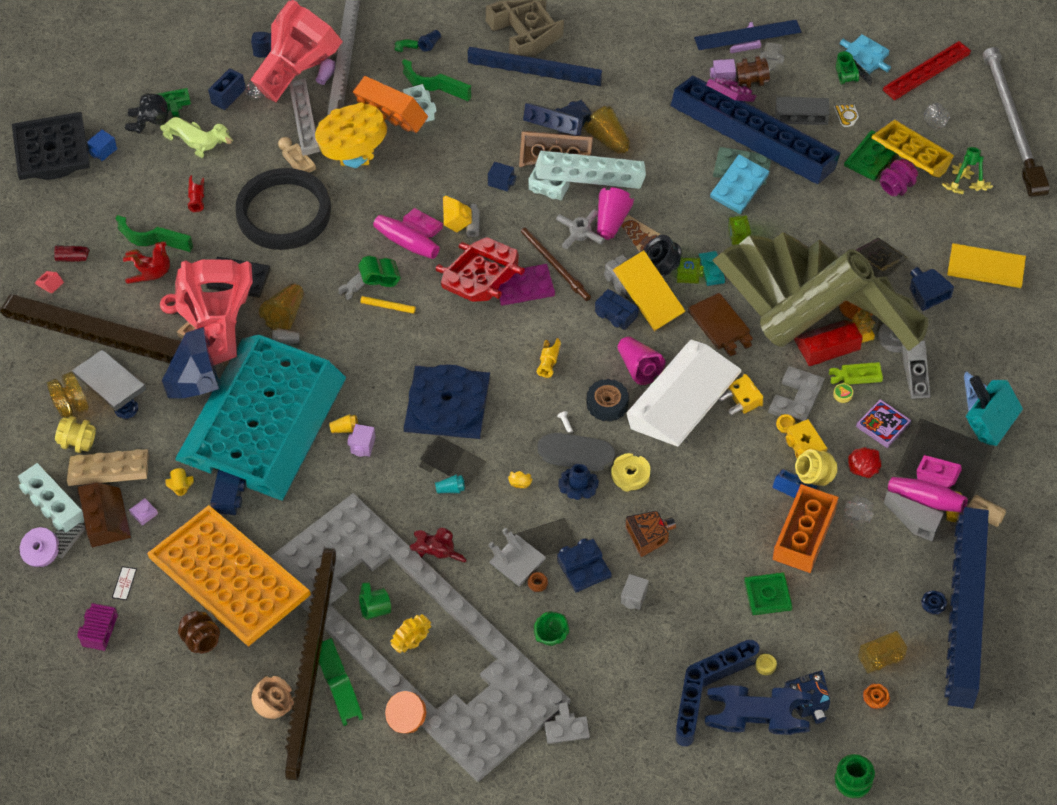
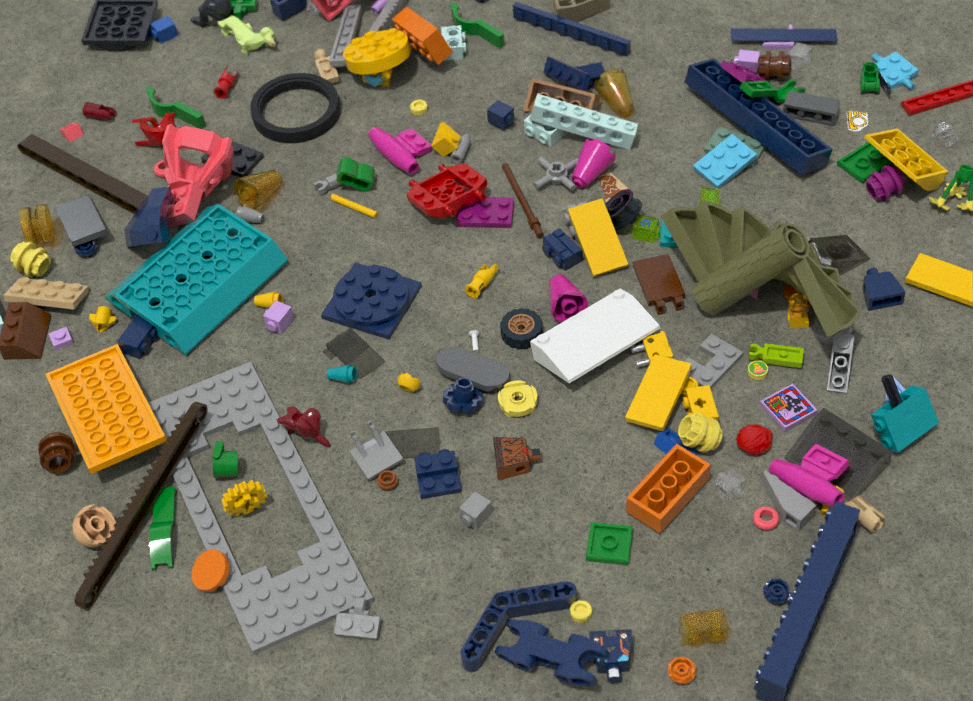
camera: 20 degrees right, 5 degrees down
(124, 583) = (17, 396): white sticker -> none
(410, 183) = (418, 107): none -> light yellow tile
(551, 628) = (380, 525): green hair -> none
(754, 101) = (764, 88): none -> green piece
(763, 436) = (658, 392): none -> yellow tile
(829, 342) = (760, 321): red slope -> none
(900, 529) = (766, 525): none -> coral piece

